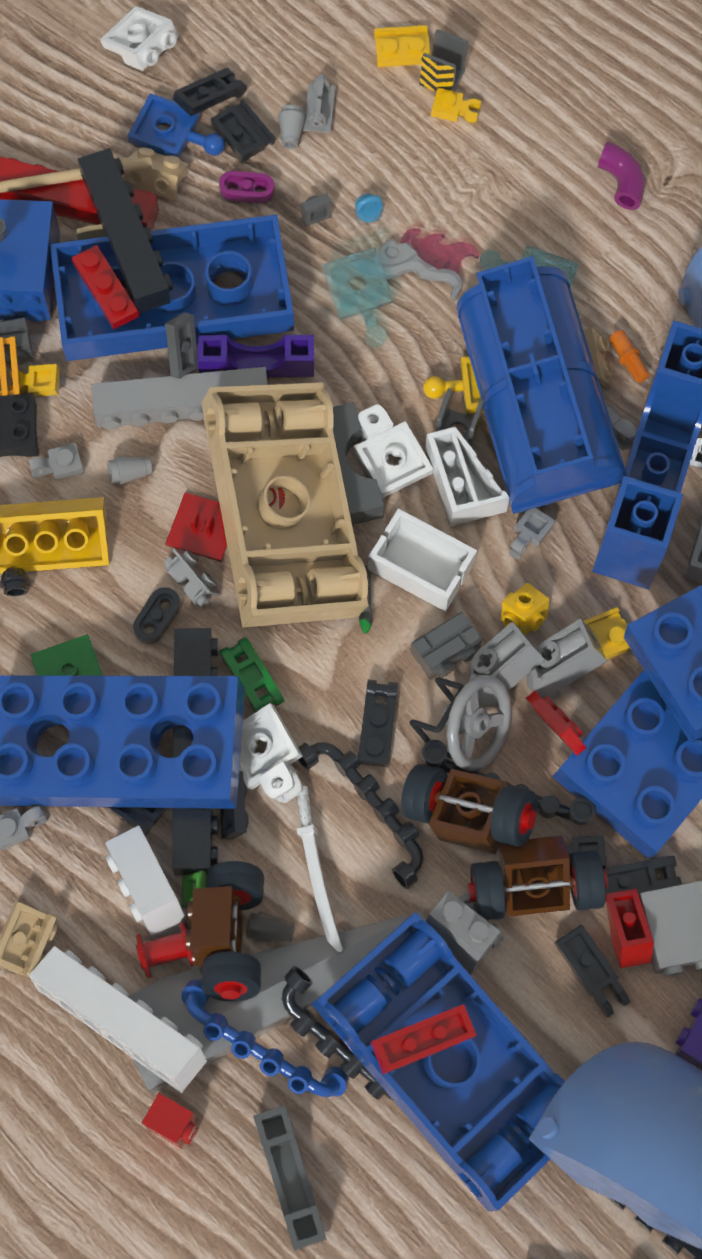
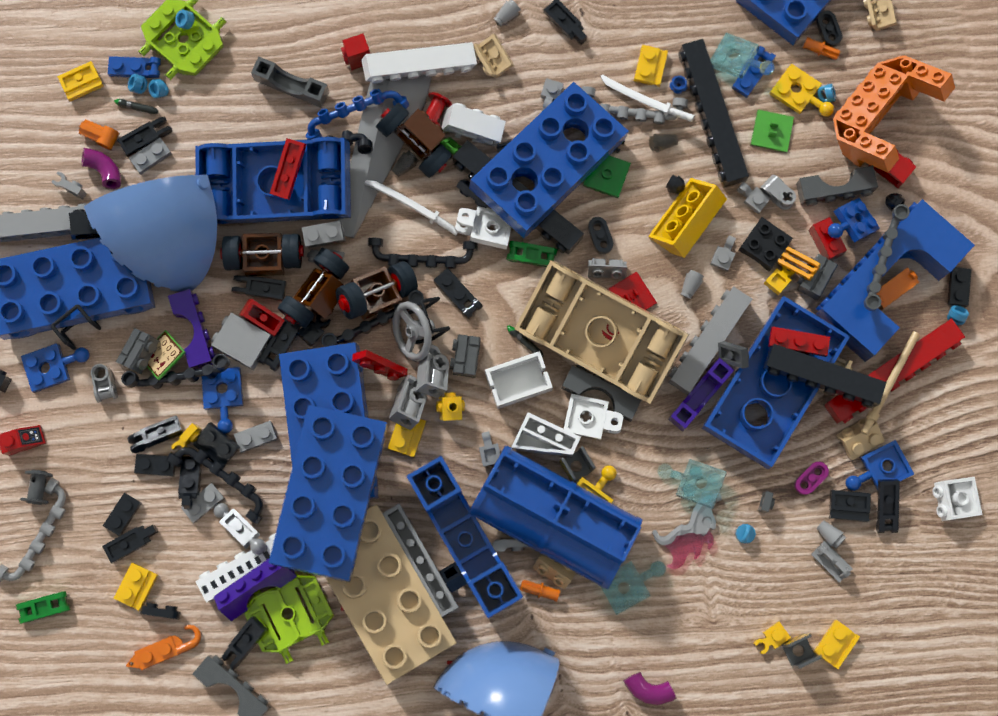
camera: 130 degrees right, 10 degrees up
(550, 996) = (262, 253): none -> brick

